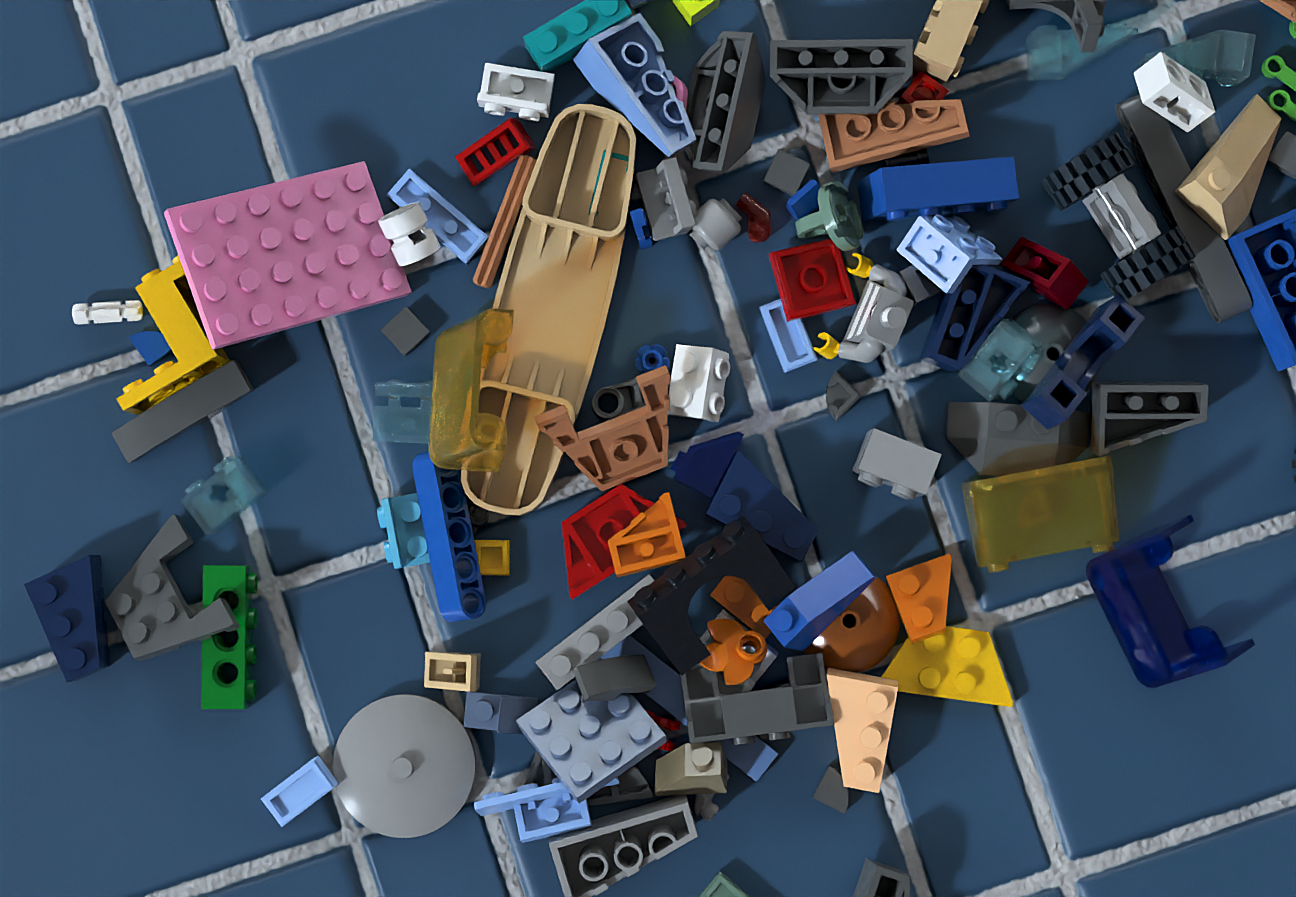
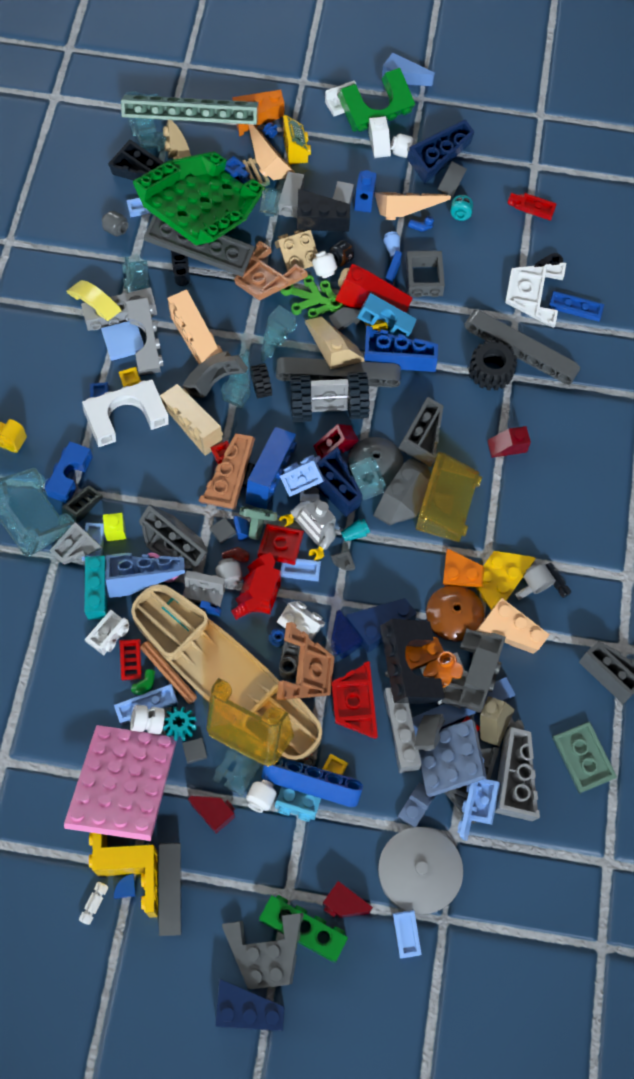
camera: 65 degrees left, 20 degrees down
(215, 513) = (233, 901): clear light blue brick -> none
(295, 678) = (344, 903): none -> dark red slope
(326, 411) = (213, 811): none -> dark red slope
(386, 471) = (261, 796): none -> white head
(419, 287) = (187, 722): none -> teal gear
(452, 671) = (383, 816): tan slope -> none
(465, 198) = (145, 685): none -> green arm
(648, 541) = (368, 681): orange wing -> none
(711, 286) = (259, 587): none -> red slope
(819, 602) = (440, 614): blue slope -> none
(831, 790) = (537, 661): dark grey tile -> none
(841, 74) = (192, 478): dark grey wedge -> none
(895, 464) = (391, 548): light grey brick -> none
(901, 388) = (356, 530): none -> teal cone
(974, 726) = (538, 579): none -> light grey piece
(992, 758) = (559, 584): none -> black axle
(1066, 380) = (395, 455): dark blue arch -> none
(1089, 85) = (261, 380): none -> black tyre
(1147, 615) = (521, 480): clear blue windscreen -> none
(1174, 92) = (285, 347): white brick -> none
(1206, 564) = (509, 442): none -> dark red slope

